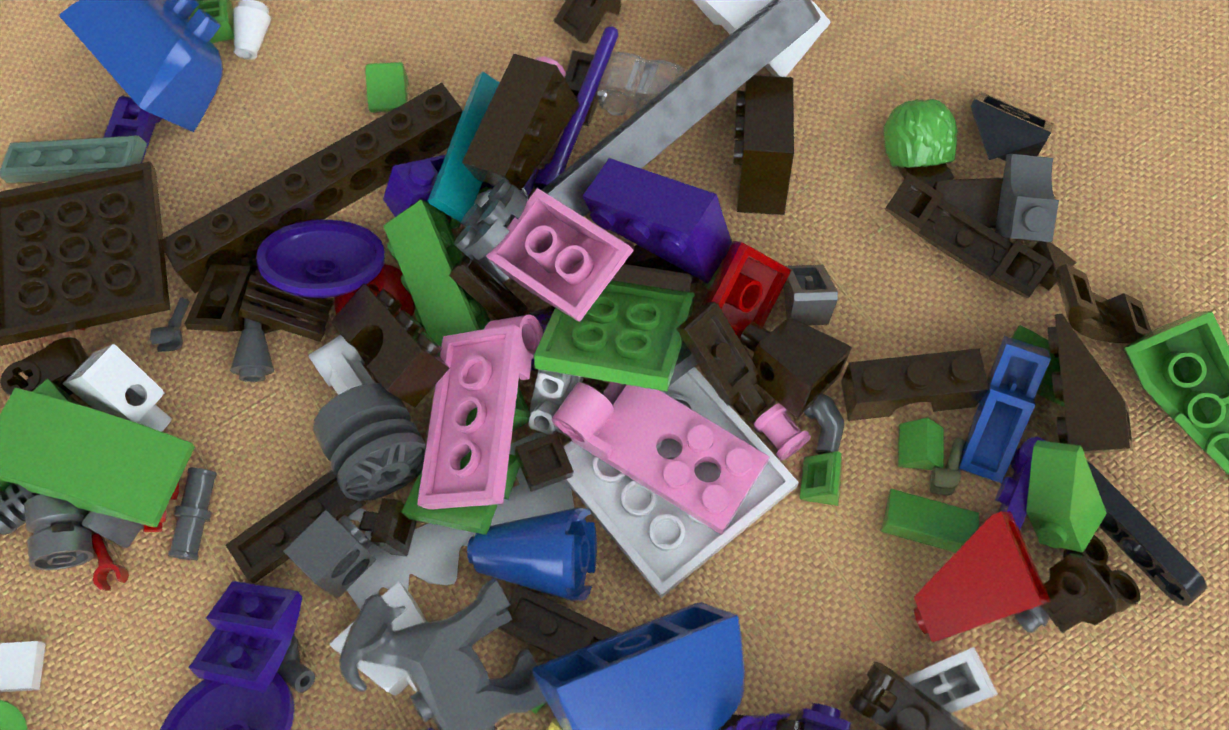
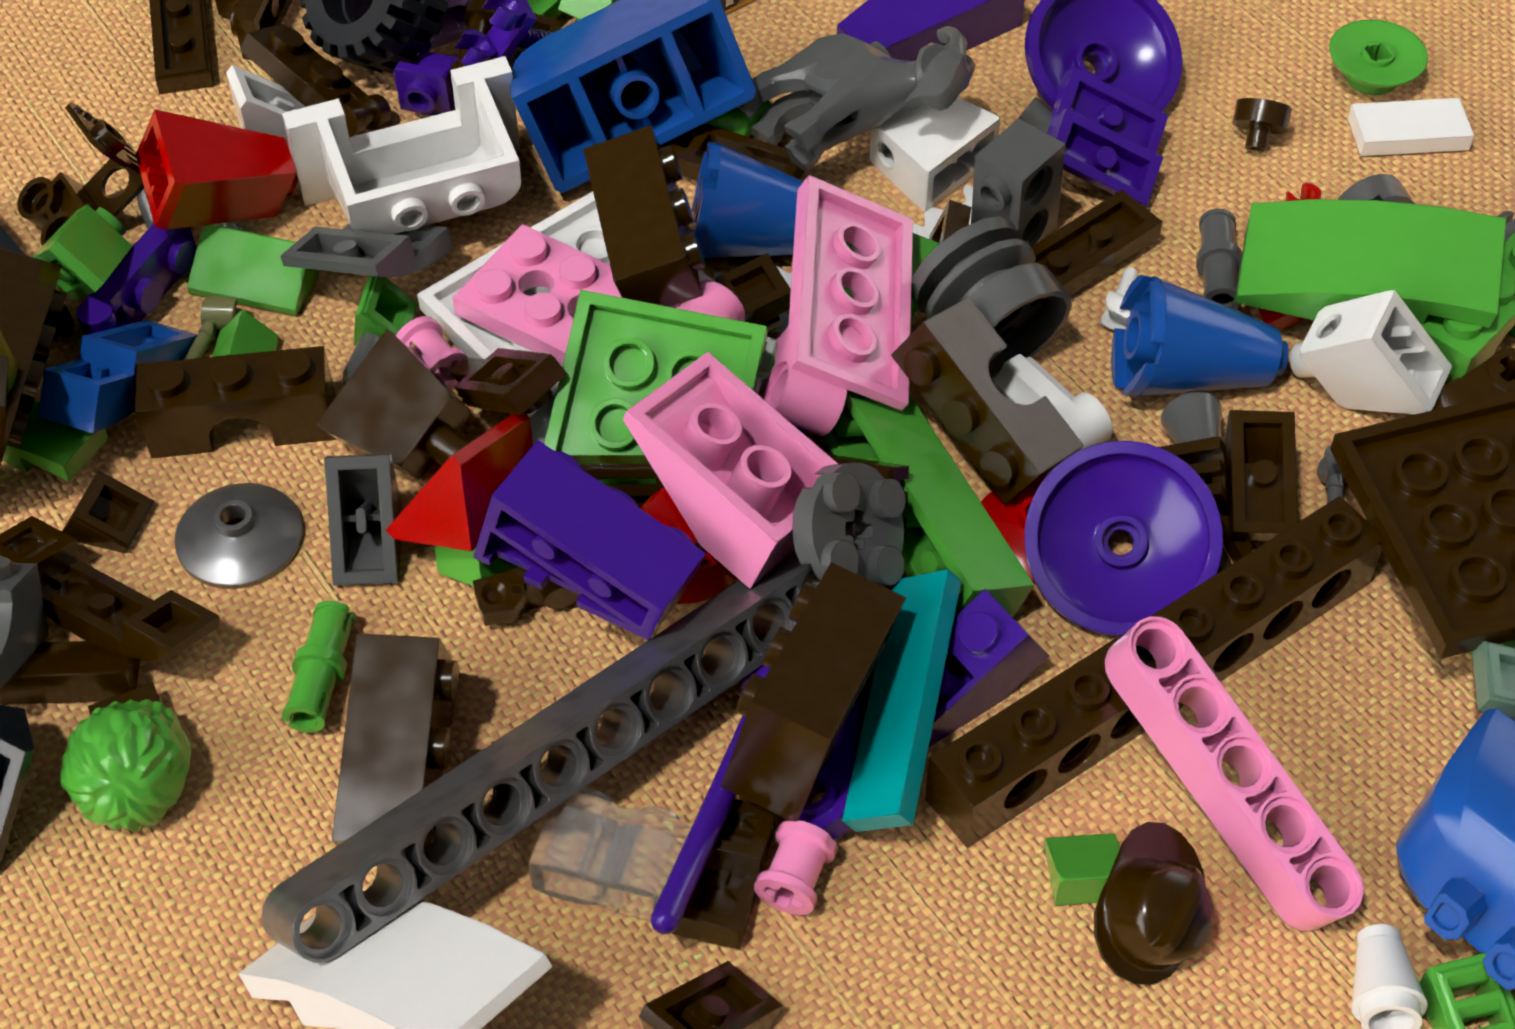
camera: 175 degrees right, 15 degrees down
(112, 667) = (1261, 119): none -> dark brown tile
(240, 415) = (1190, 344): none -> blue cone
(281, 474) = (1114, 316): none -> white hand
(299, 98) = (1264, 788): none -> bright pink beam
(352, 52) = (1152, 906): none -> dark brown piece
(622, 472) = (645, 219): none -> dark brown wedge
(817, 593) = (418, 168): none -> white windscreen
(820, 201) = (319, 667): none -> bright green pin
(841, 509) = (369, 252): none -> dark grey slope
(889, 320) = (243, 552): none -> flat silver dish
(981, 311) = (108, 514): none -> dark brown slope

